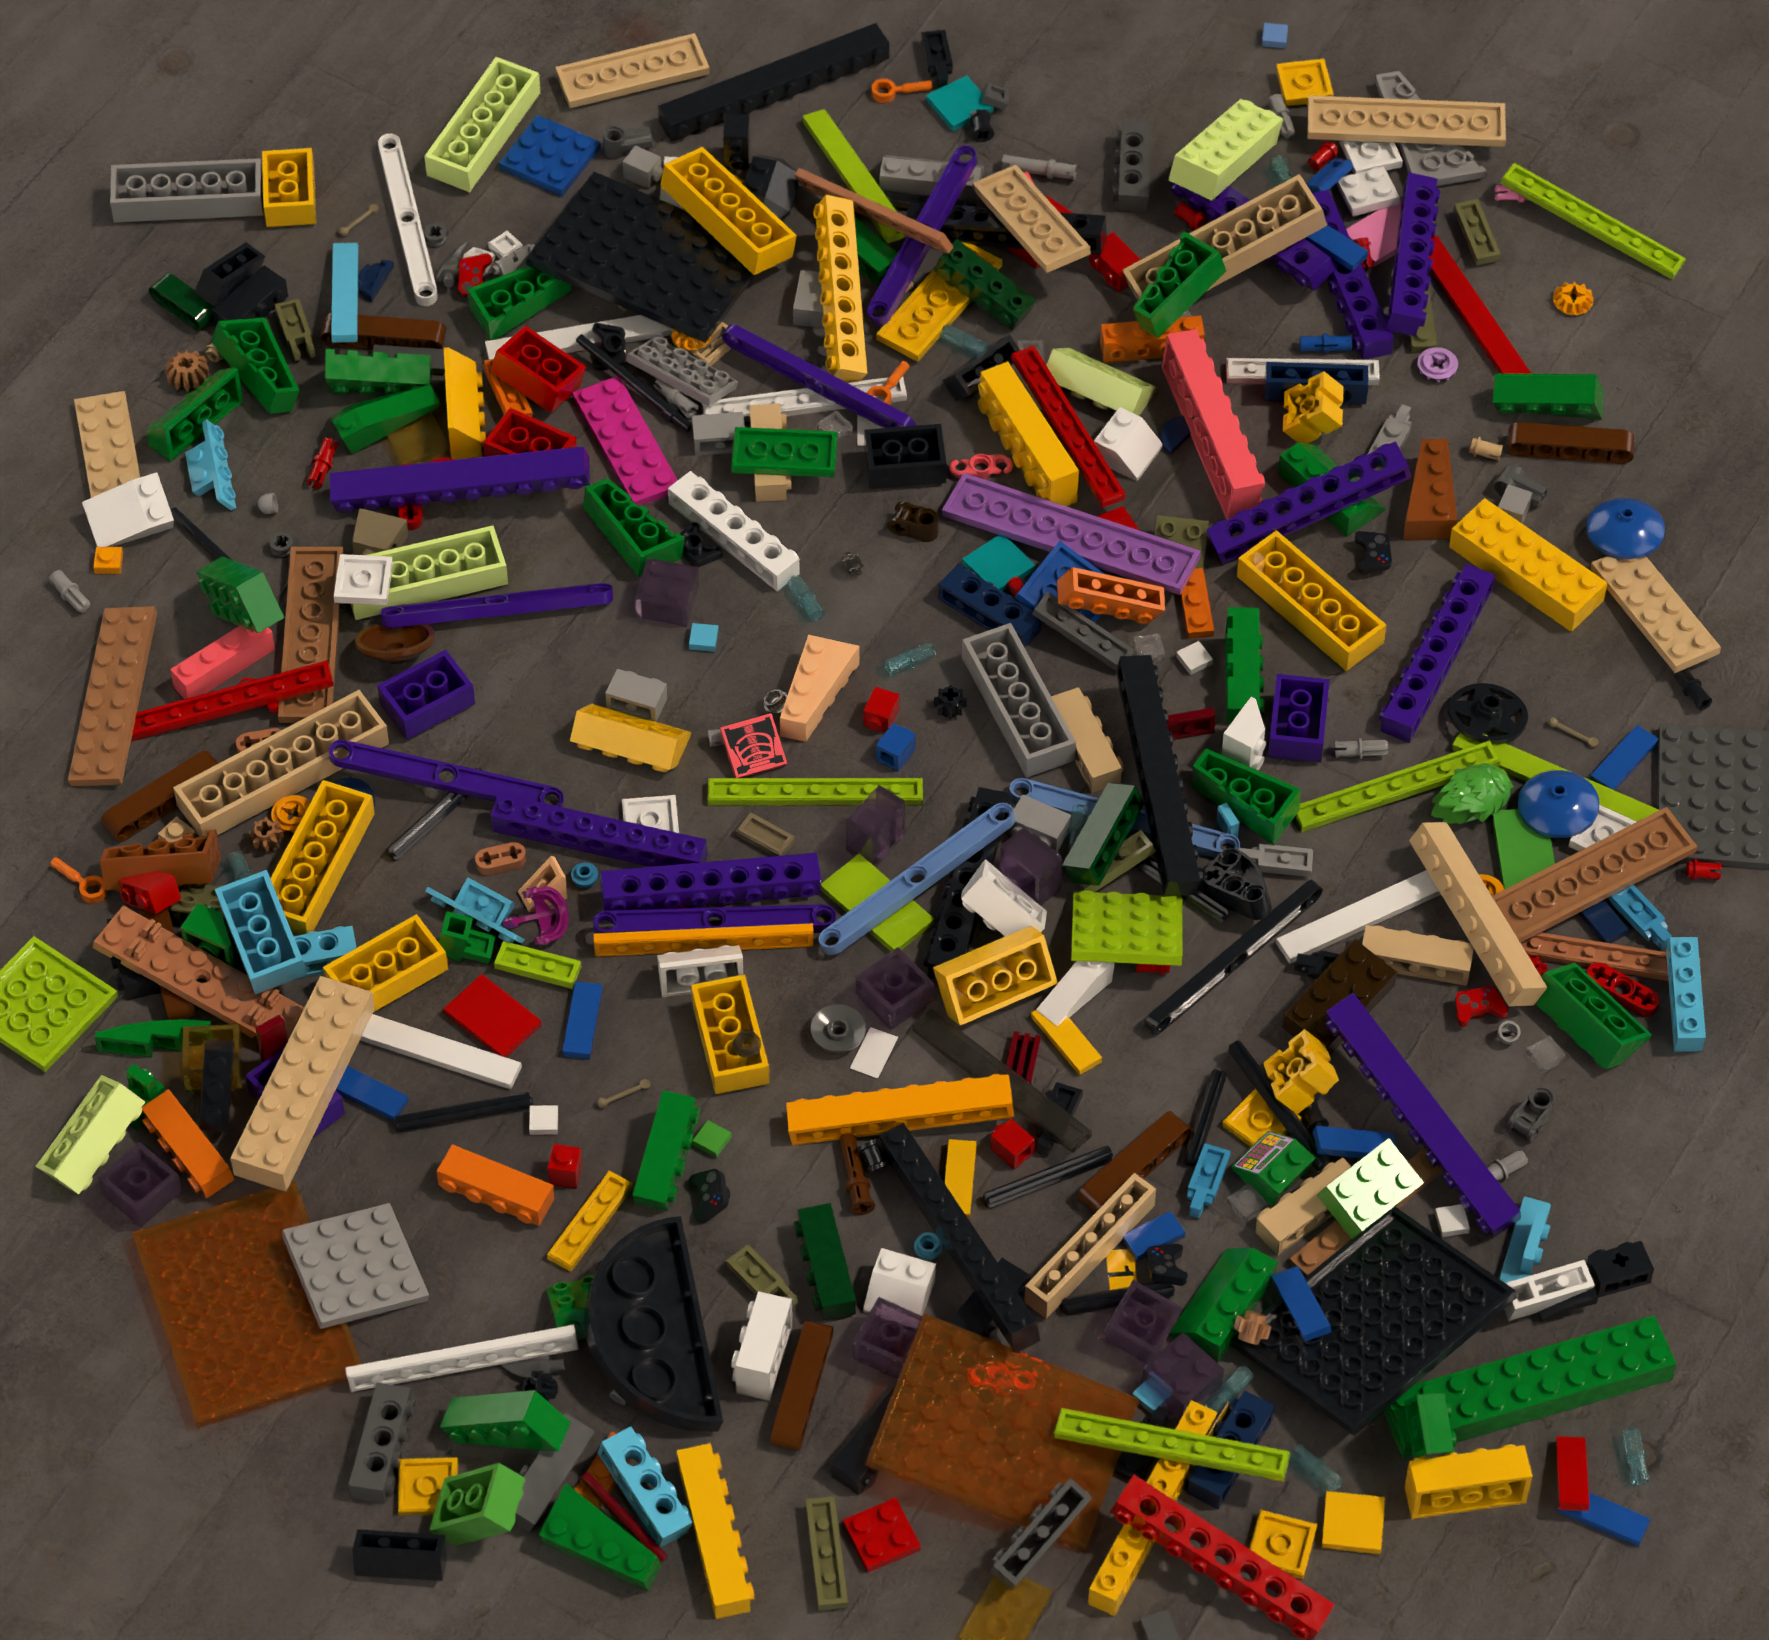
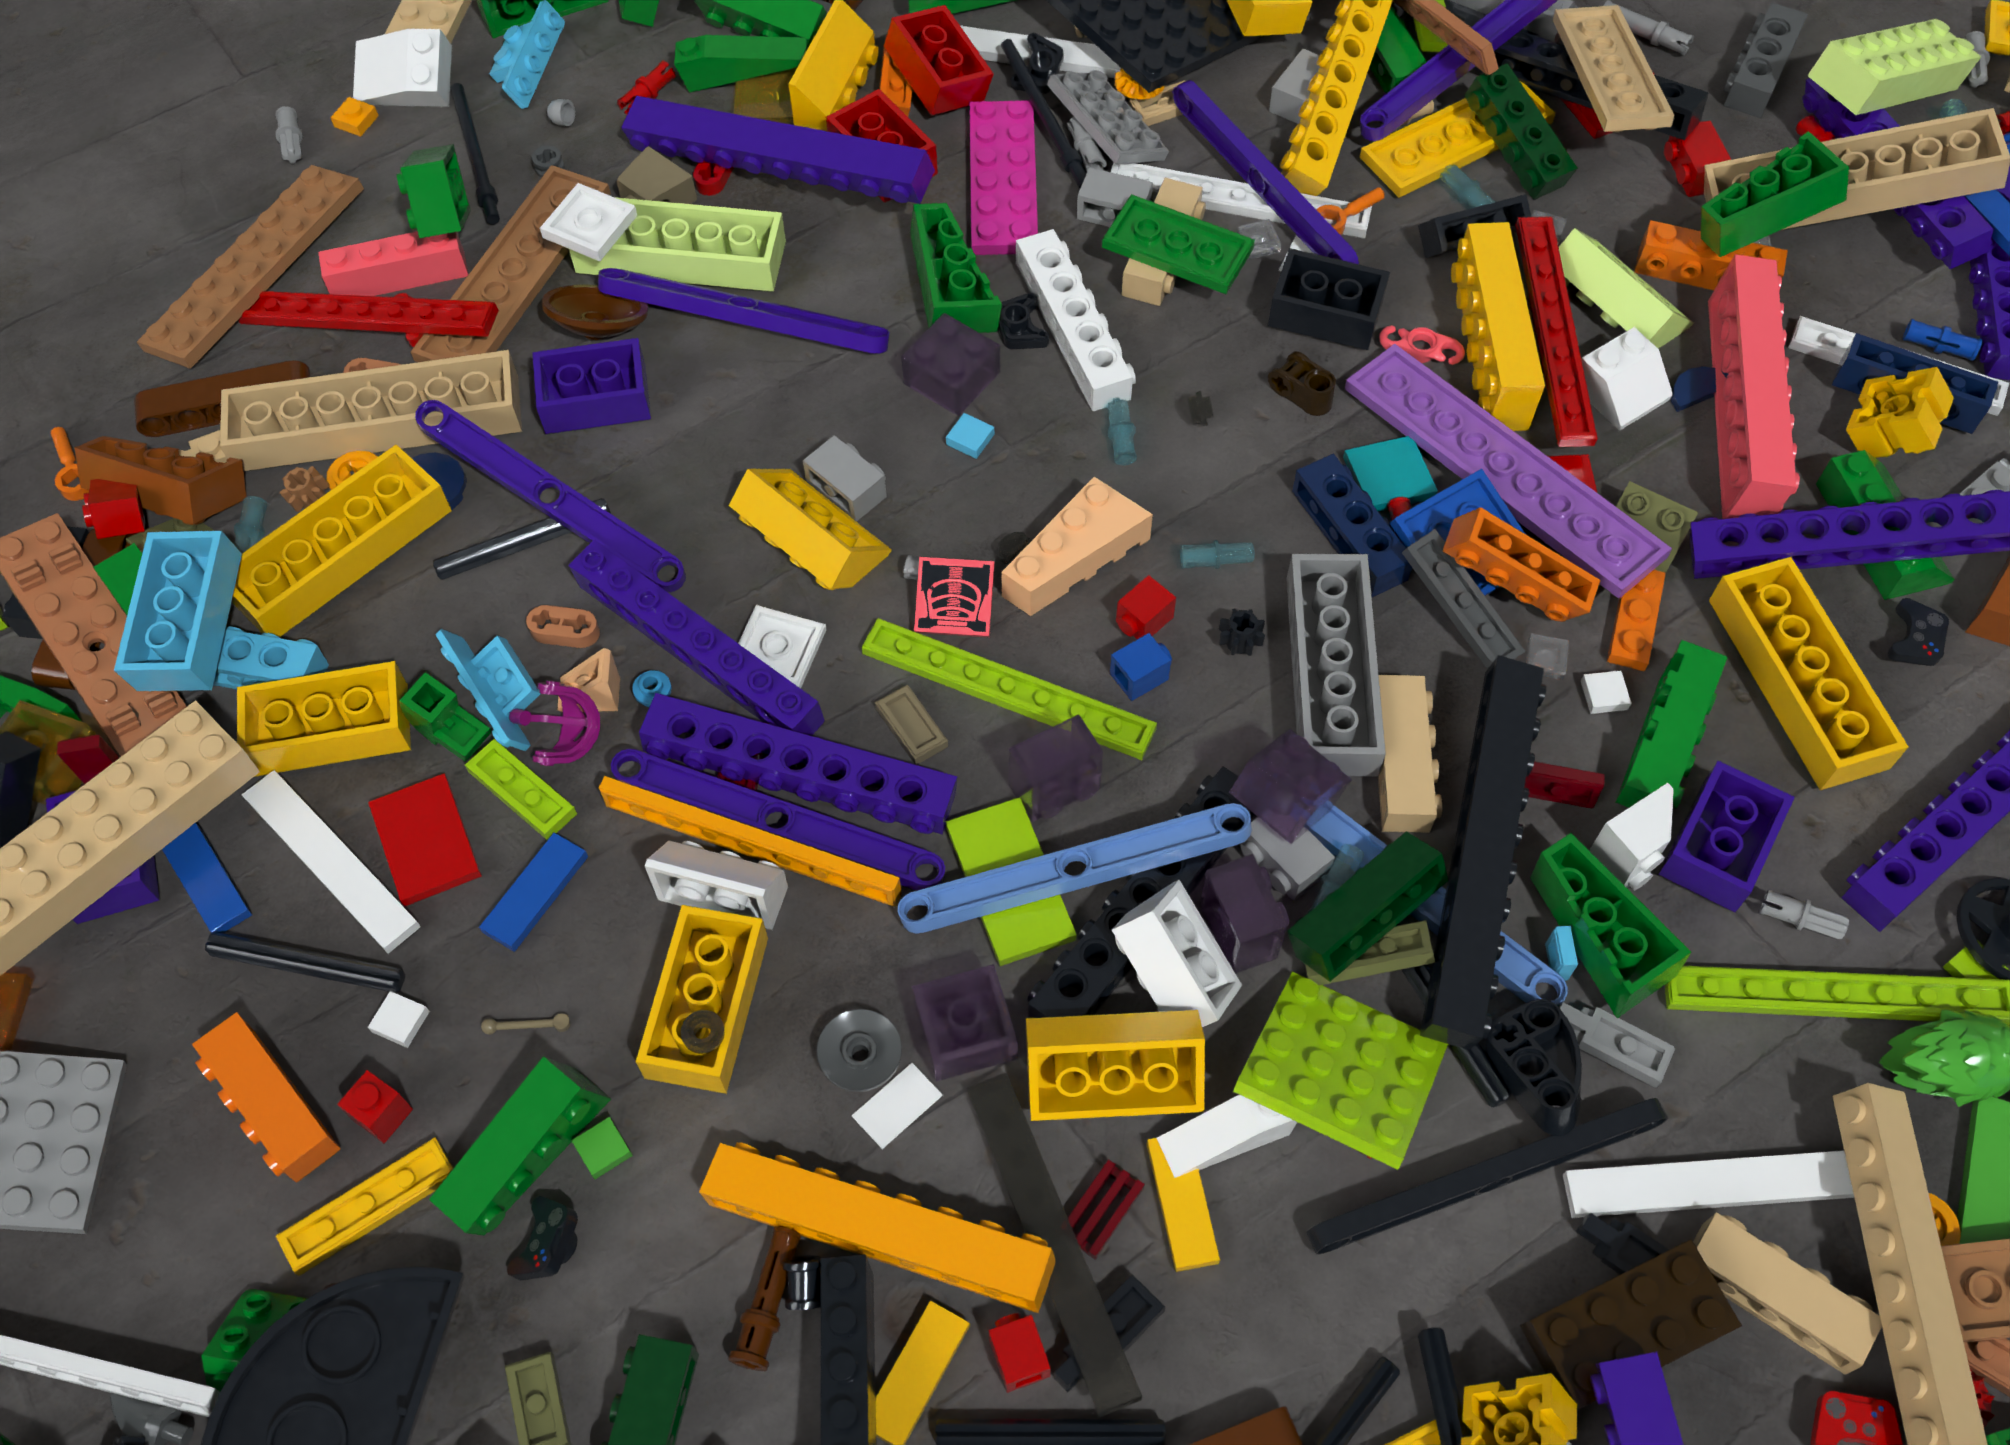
camera: 25 degrees right, 5 degrees up
(1027, 781) = (1290, 785): none -> clear purple brick

